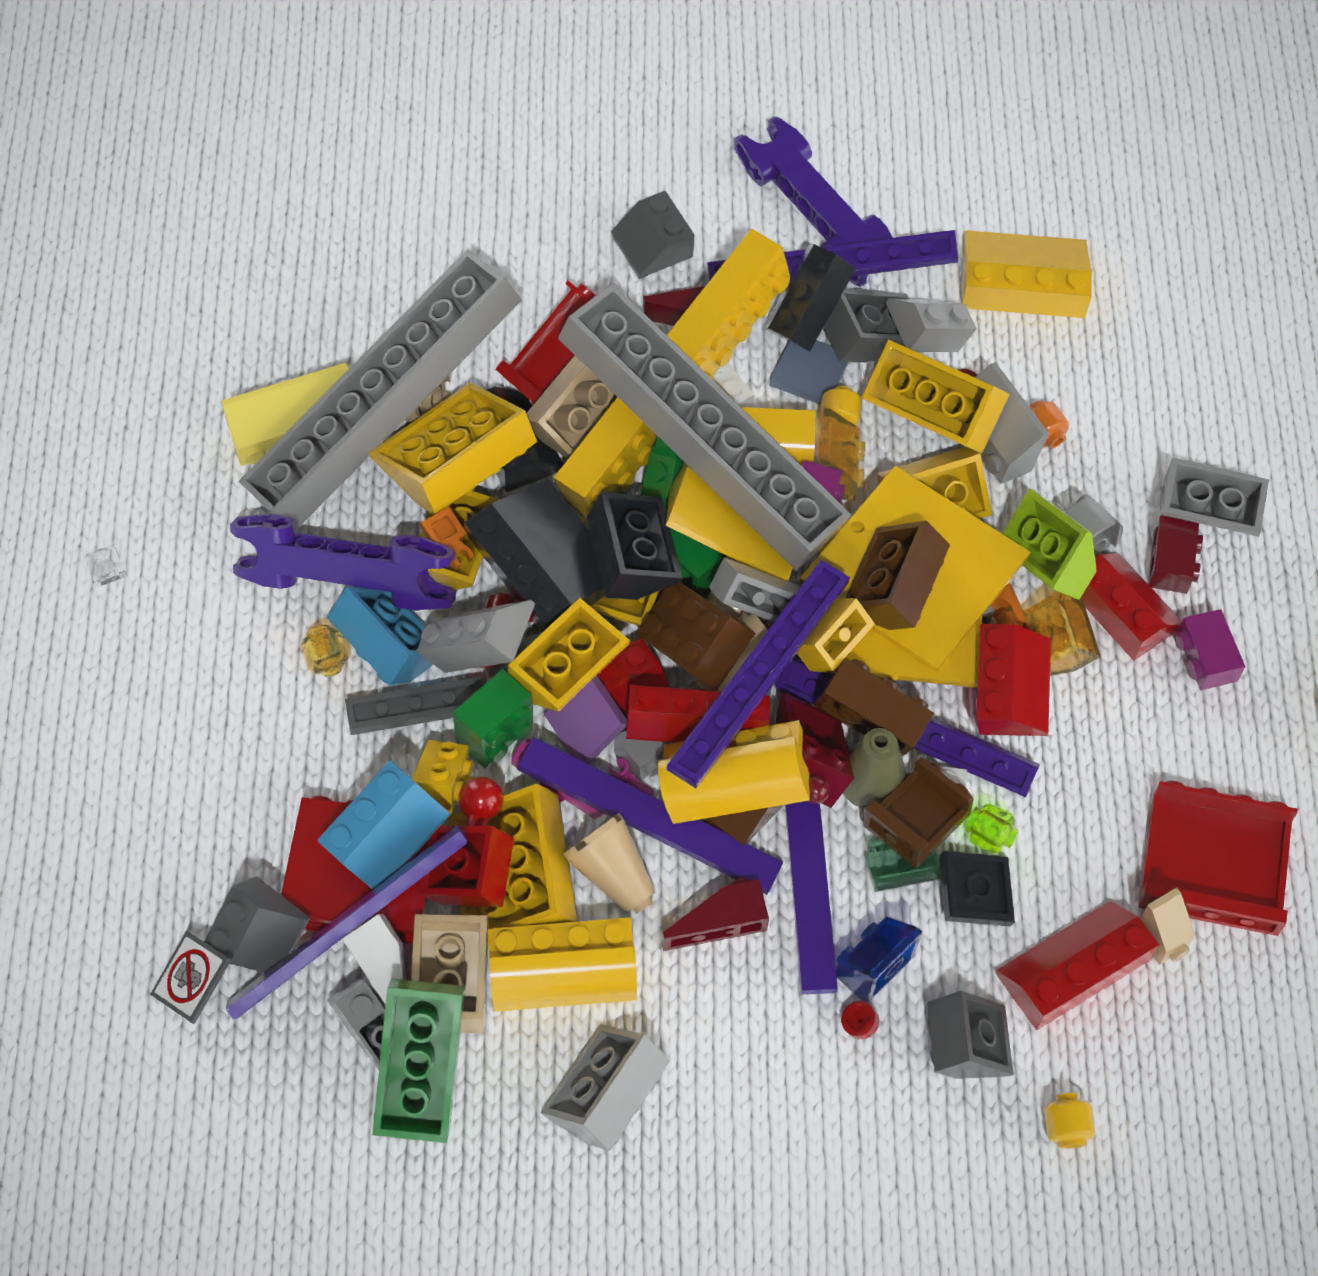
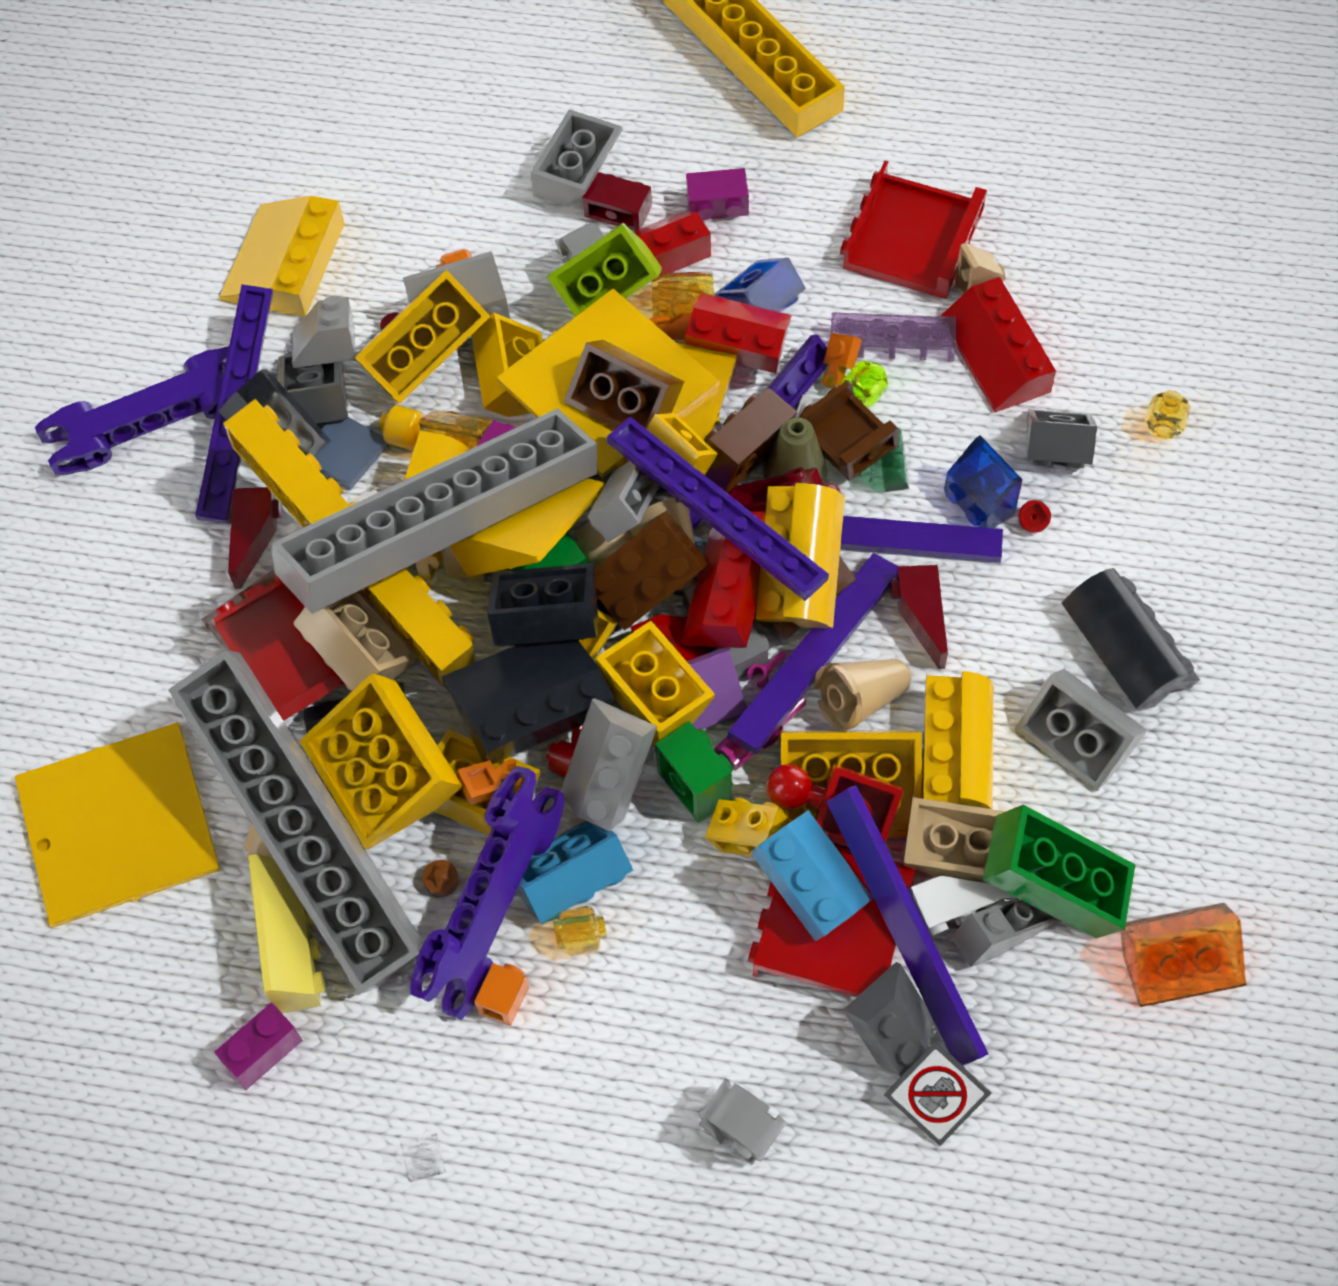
camera: 75 degrees left, 0 degrees up
(148, 808) = (742, 1121): none -> light grey brick
(191, 421) = (258, 1046): none -> magenta brick
(258, 599) = (502, 993): none -> orange brick
(363, 1204) = (1184, 954): none -> clear orange slope
(369, 531) = (440, 878): none -> dark orange tile
(377, 267) = (116, 824): none -> yellow piece
(408, 705) = (656, 852): dark grey plate -> none
(654, 235) = (147, 559): dark grey slope -> none
(661, 471) = (454, 588): green hinge -> none
(720, 1129) = (1129, 638): none -> black brick
(976, 888) = (921, 406): black tile -> none
(1019, 796) = (840, 356): none -> orange plate
(1023, 1152) = (1167, 414): none -> clear yellow head
(1068, 850) = (898, 332): none -> clear purple hinge
(1069, 1121) = (1143, 376): yellow head -> none
(1090, 710) = (765, 284): none -> clear blue slope

